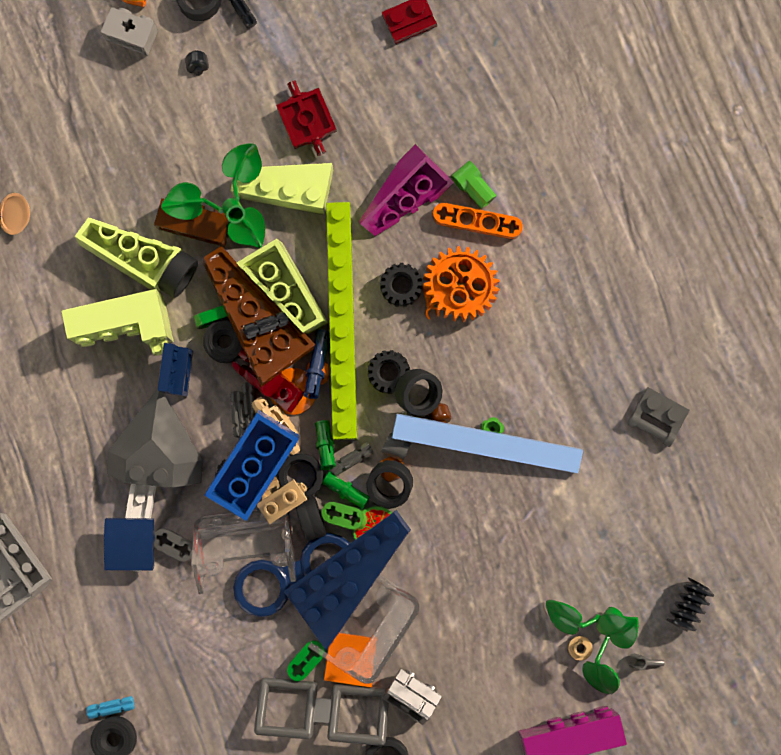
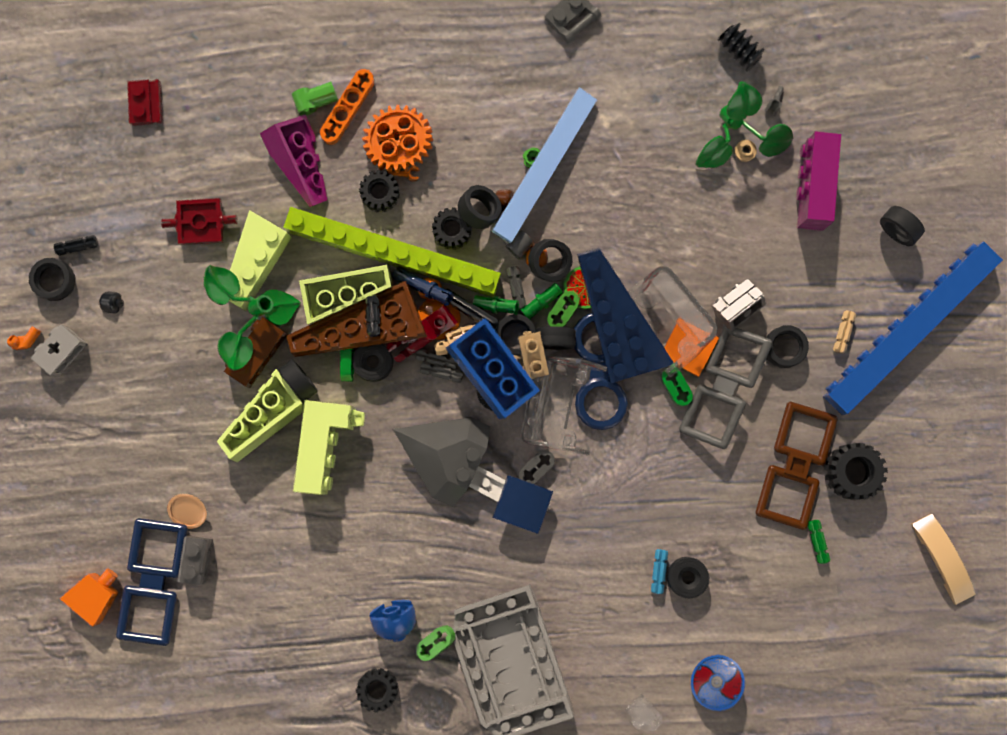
camera: 70 degrees left, 0 degrees up
(175, 370) = (383, 411): dark blue slope -> none
(309, 423) = (471, 310): none -> black axle

